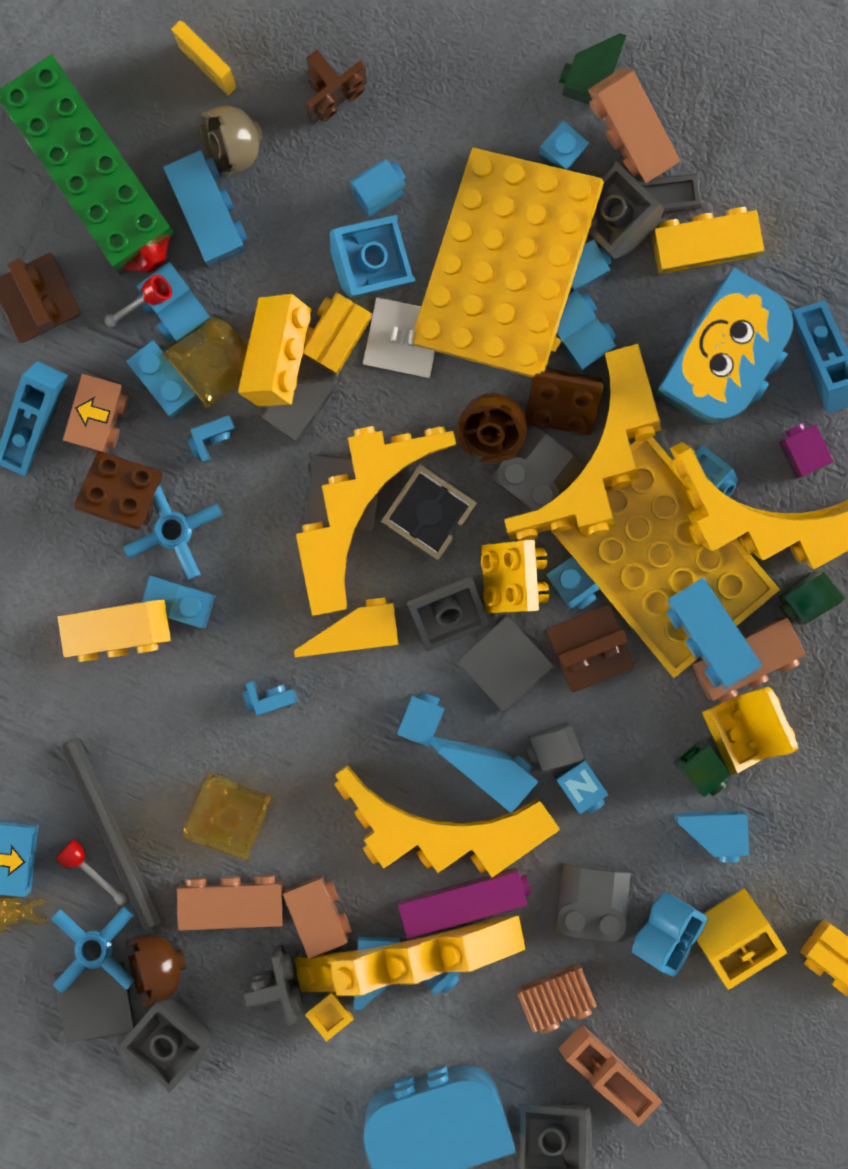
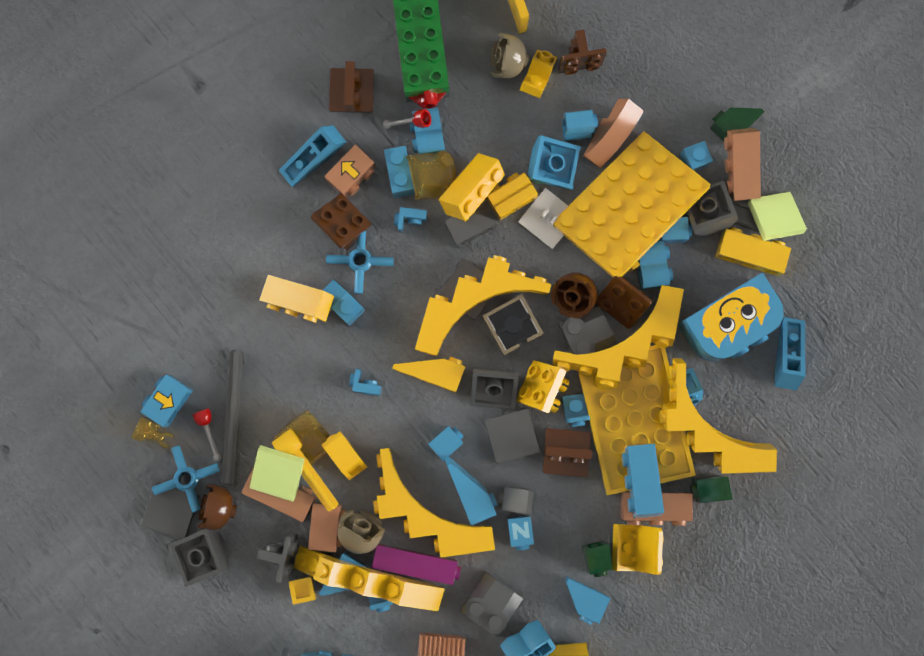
camera: 25 degrees right, 5 degrees down
(206, 208) = (474, 88): dark azure brick -> none
(211, 835) = (291, 444): none -> yellow axle
(213, 880) = (277, 473): none -> yellowish green tile
(284, 140) = (538, 73): none -> yellow slope
(291, 808) = (344, 455): none -> yellow slope
(365, 899) = (359, 532): none -> dark tan cylinder
(430, 171) = (613, 132): none -> nougat slope
(715, 174) = (777, 216): none -> yellowish green tile
(805, 450) = (751, 401): magenta brick -> none

